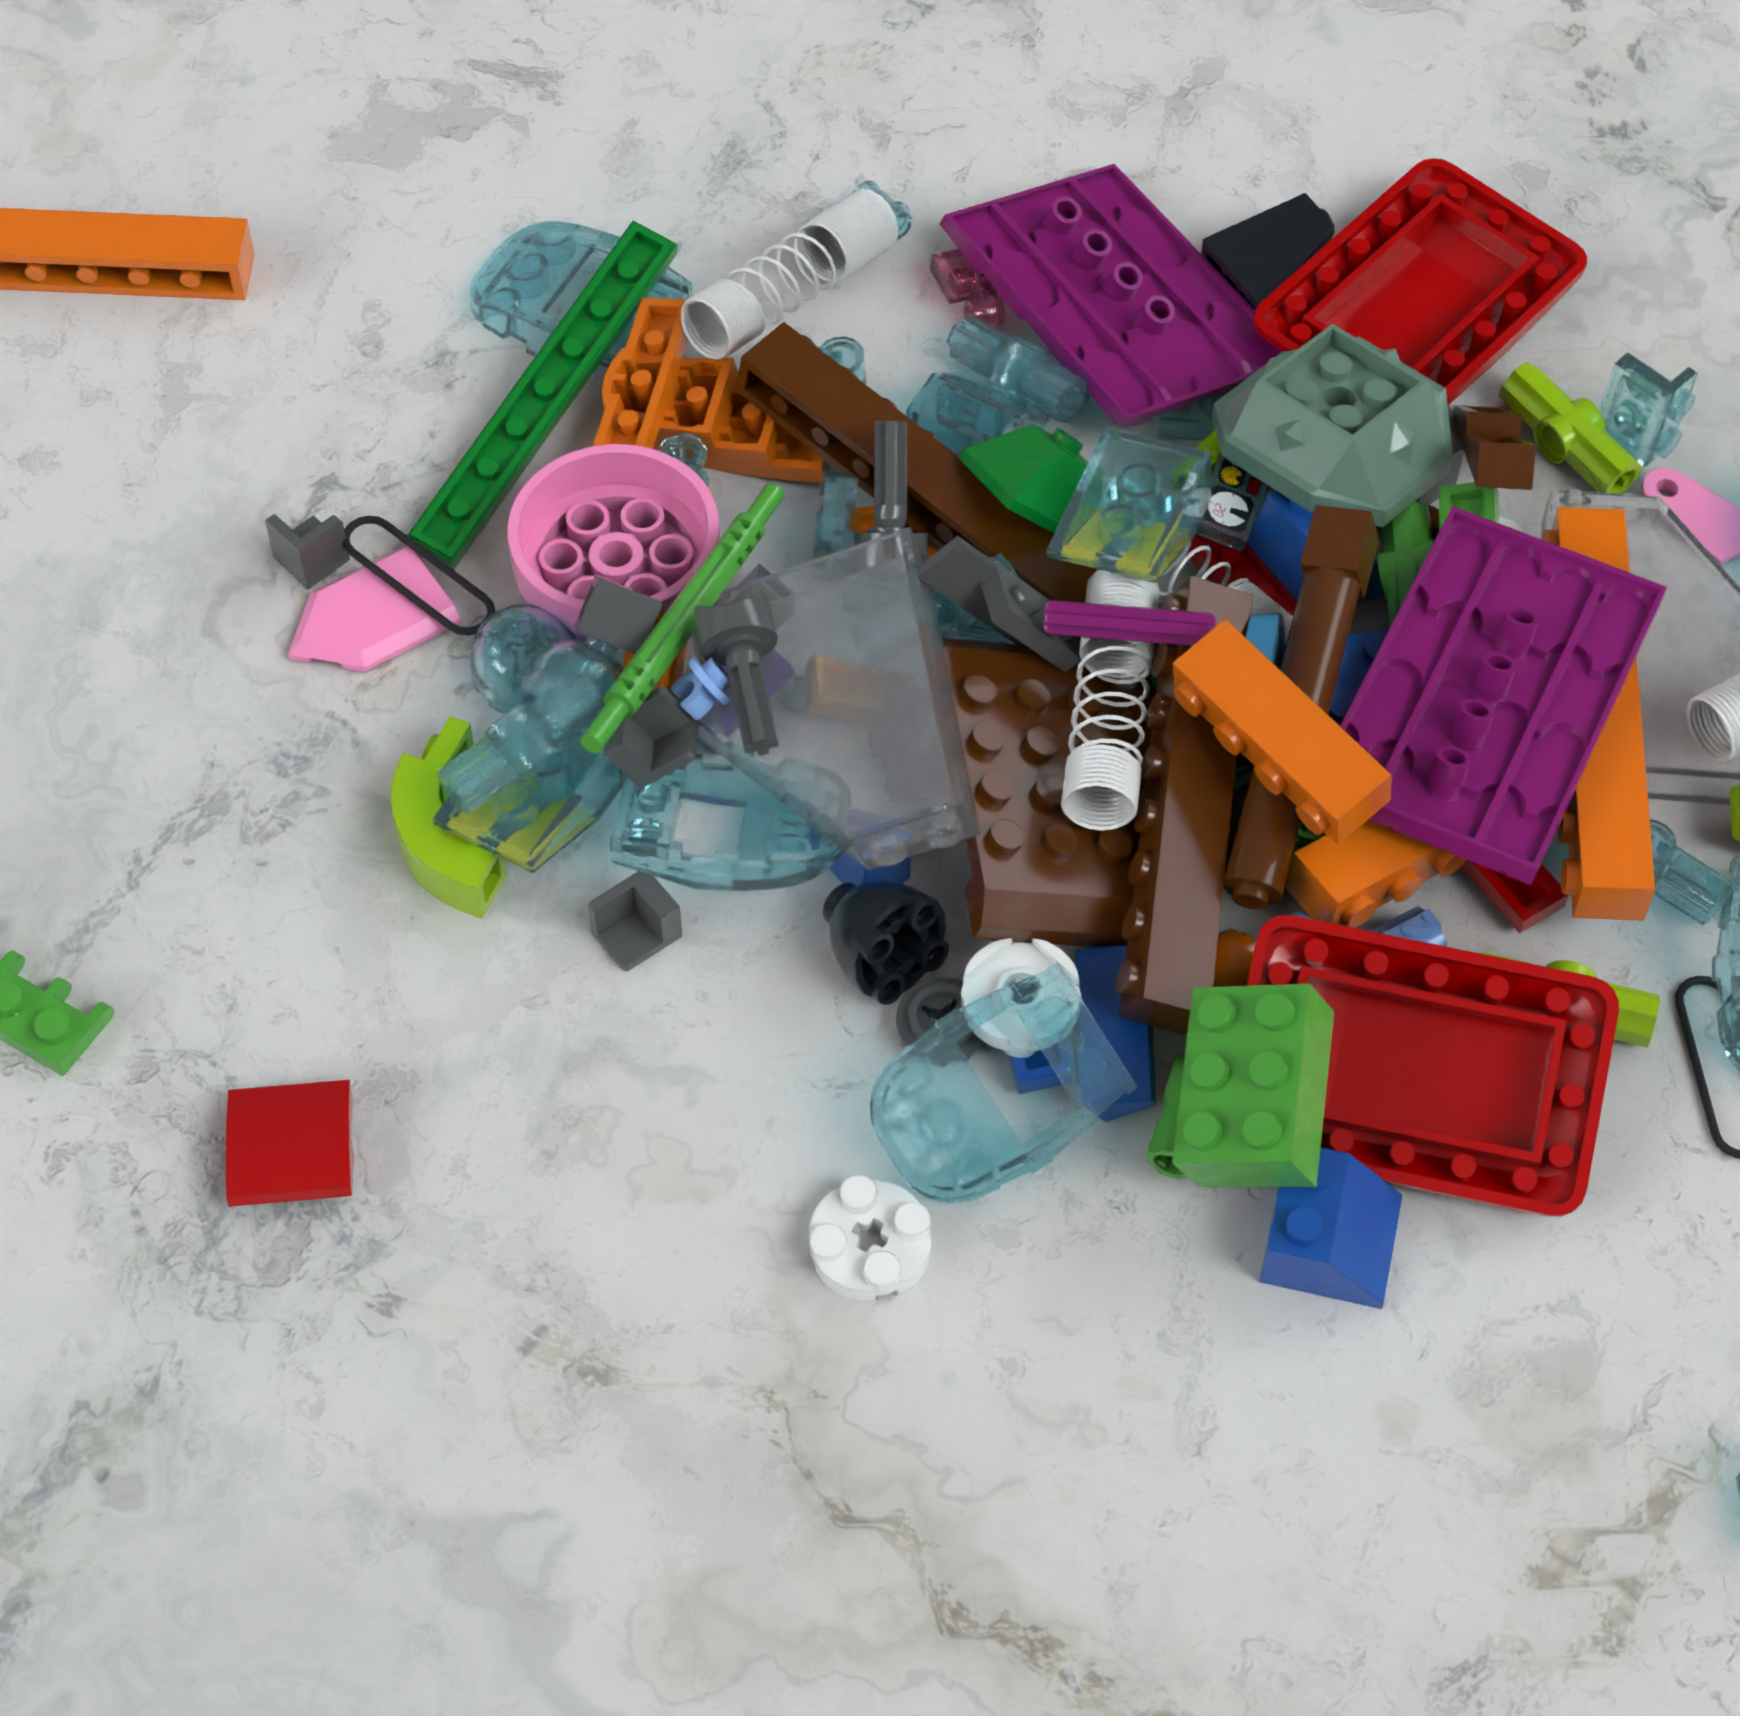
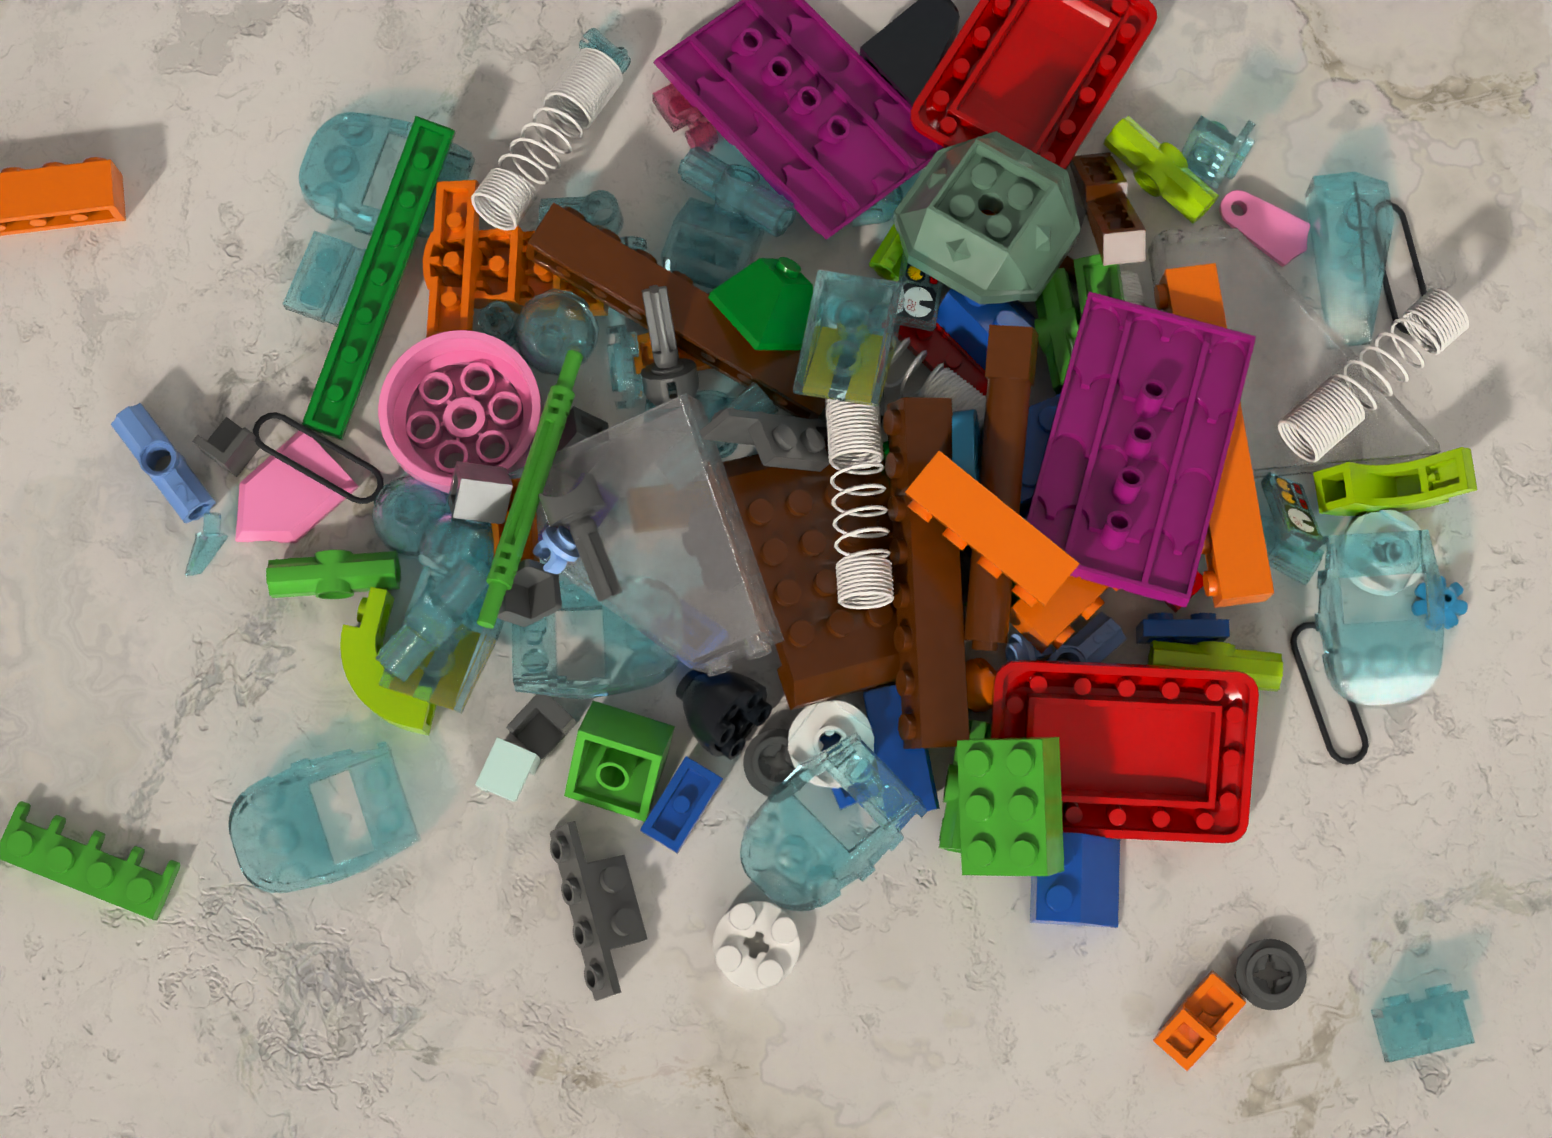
camera: 10 degrees left, 20 degrees up
(220, 550) = (150, 444): none -> medium blue piece
(249, 650) = (206, 544): none -> clear light blue bar
(258, 991) = (281, 832): none -> clear light blue slope
(289, 1143) = (332, 949): red slope -> none
(401, 705) = (333, 574): none -> bright green piece
(472, 388) = (324, 279): none -> clear light blue plate
(578, 958) = (507, 770): none -> light aqua panel
(664, 1149) = (600, 906): none -> dark grey bracket
(728, 979) = (618, 760): none -> bright green slope
(746, 462) = (551, 327): none -> clear light blue cylinder
(802, 1047) = (681, 804): none -> blue plate
(1126, 623) = (865, 449): magenta axle -> none
(1484, 1442) = (1199, 1020): none -> orange slope
(1526, 942) = (1197, 629): none -> blue plate
(1615, 1385) = (1283, 958): none -> dark grey gear
(1694, 827) = (1292, 512): none -> clear light blue tile

